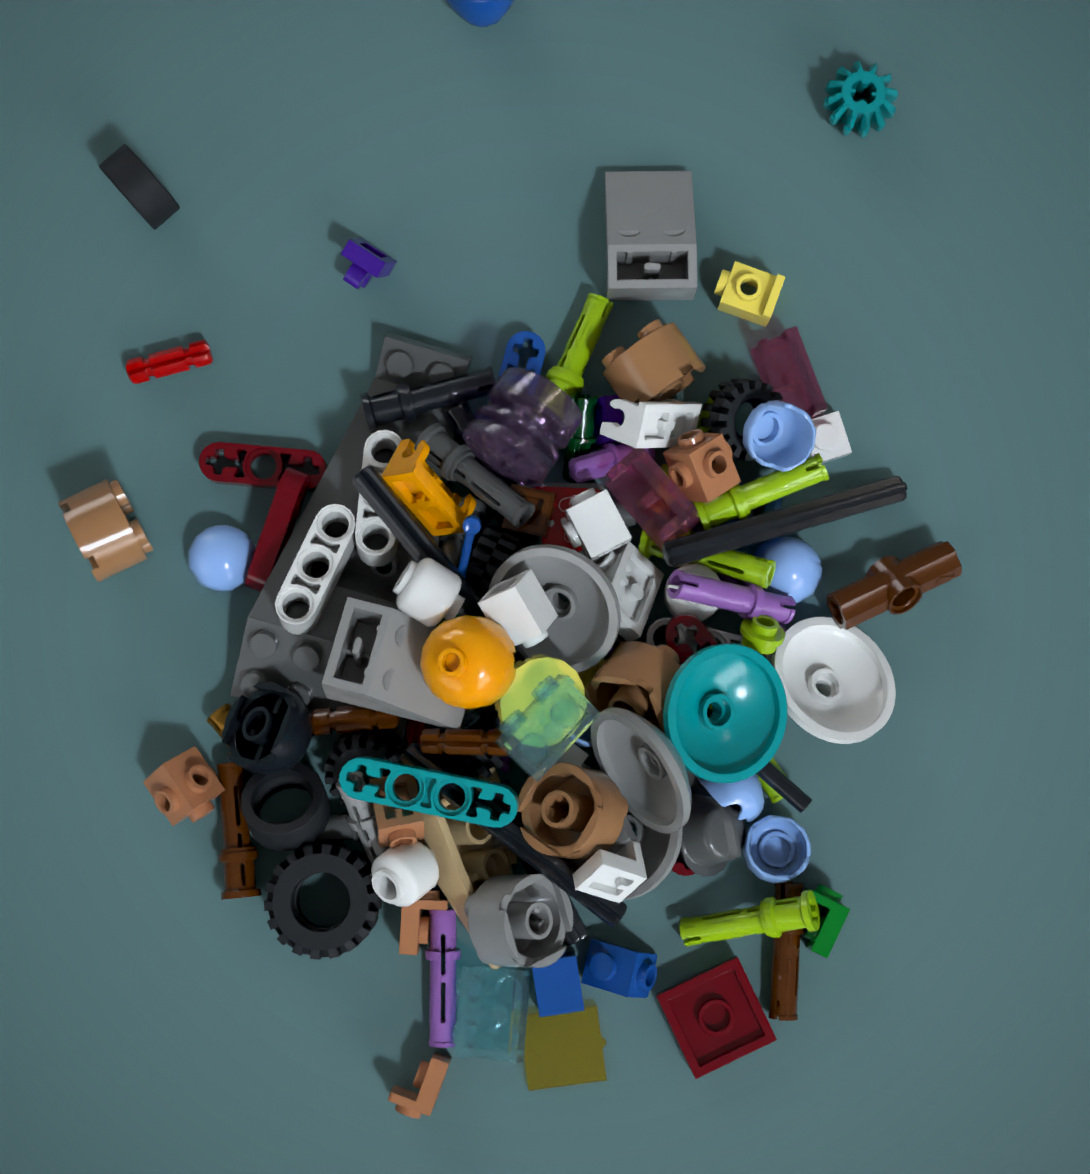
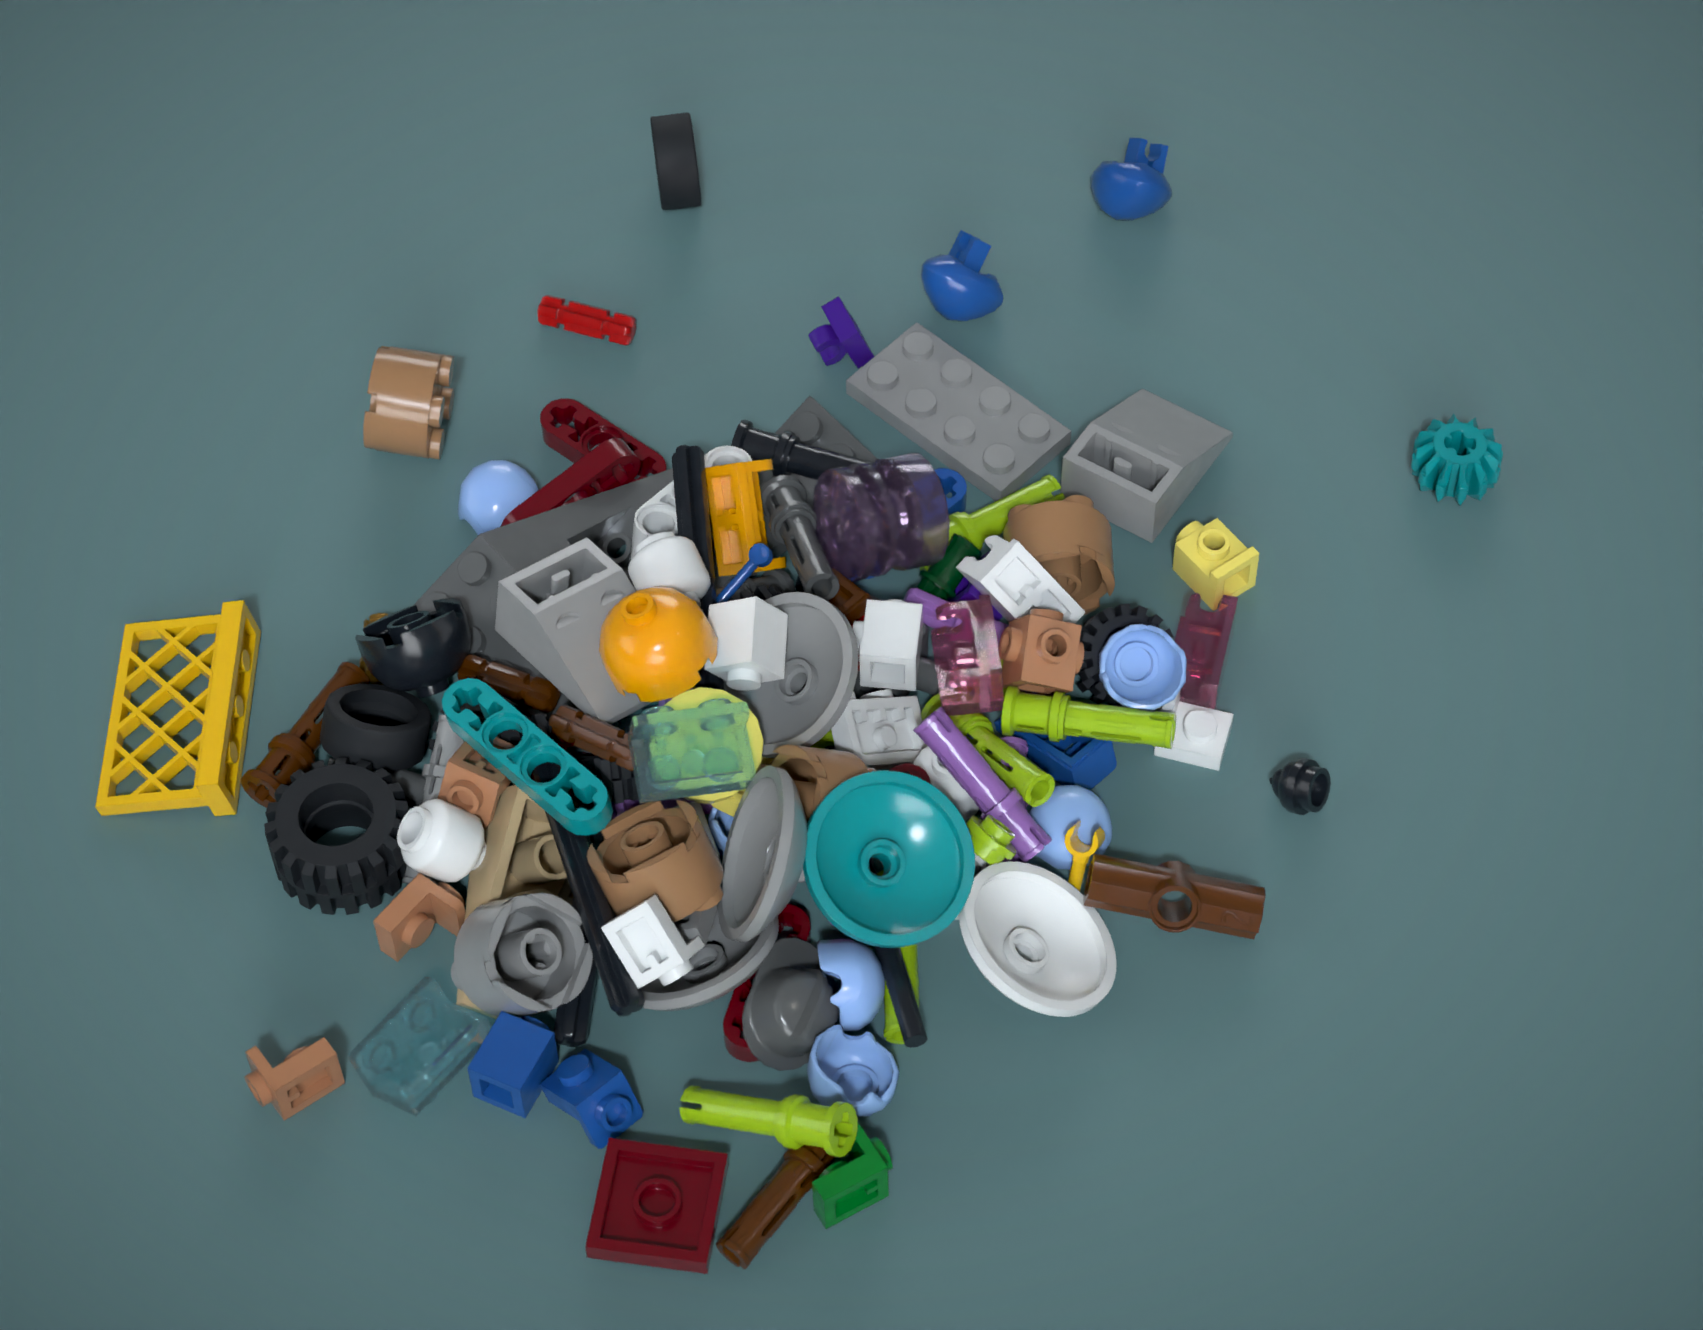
camera: 35 degrees right, 30 degrees down
(161, 845) = (224, 721): none -> yellow fence
(184, 787) = (292, 657): nougat brick -> none
(316, 547) = (595, 510): white beam -> none
(419, 163) = (956, 284): none -> blue piece
(442, 1029) = (413, 965): medium lavender pin -> none
(487, 272) = (958, 412): none -> light grey plate
(564, 1049) = (469, 1143): clear yellow piece -> none
(783, 521) = (1099, 763): black axle -> none
(818, 593) = (1081, 852): none -> yellow hand
(916, 440) = (1301, 786): none -> black plate

